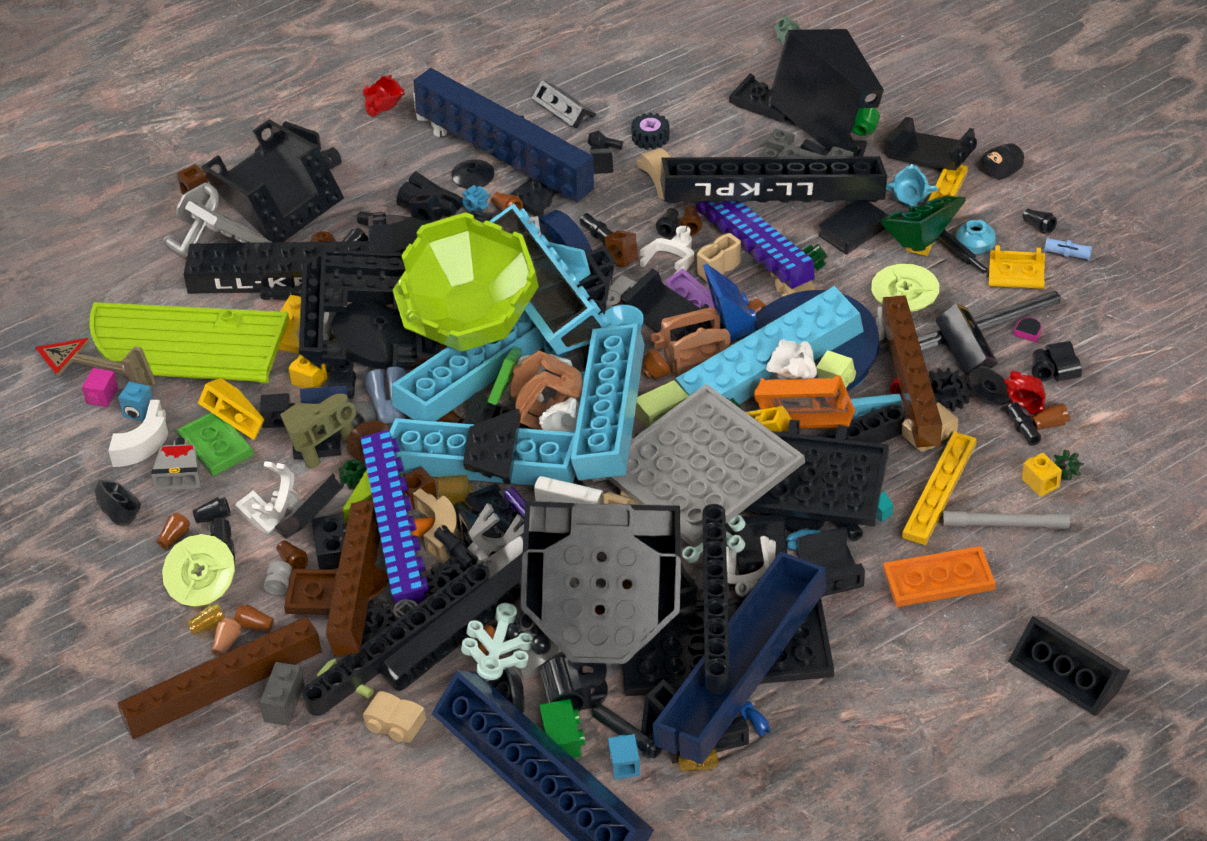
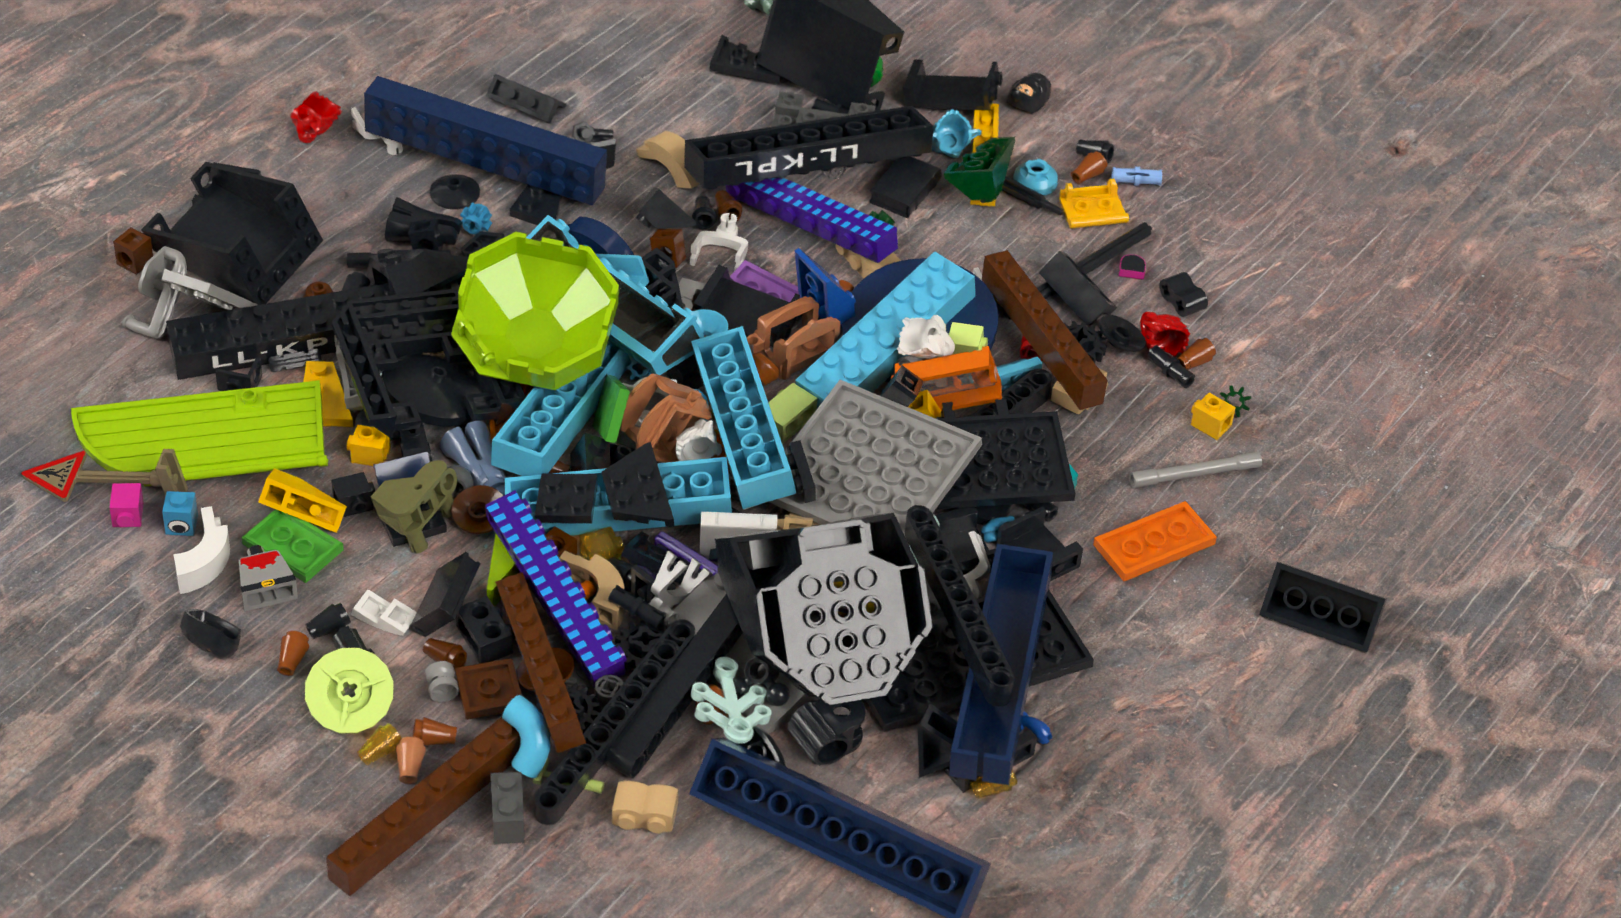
camera: 25 degrees left, 0 degrees up
(225, 301) = (231, 380): none -> black bracket
(286, 498) = (412, 591): white piece -> none
(318, 650) = (533, 733): none -> medium azure cylinder
(352, 473) = (478, 548): dark green gear -> none
(433, 444) = (566, 498): none -> black plate
(503, 201) = (513, 218): dark orange cone -> none
(560, 724) = (835, 772): green brick -> none
(597, 228) = (629, 232): black pin -> none
(623, 727) = (930, 777): black axle -> none
(624, 756) = (914, 795): dark azure brick -> none
(627, 216) = (661, 212): none -> black slope
(634, 466) = (803, 480): none -> black hinge
(650, 131) = (638, 114): black wheel -> none
(722, 255) = (779, 241): tan brick -> none
(755, 399) = (903, 387): none -> black slope
(906, 279) = (985, 237): yellowish green piece -> none
(939, 488) = (1115, 449): yellow plate -> none
(1026, 235) = (1091, 166): none -> dark orange cone
(1042, 365) = (1163, 301): black cone -> none

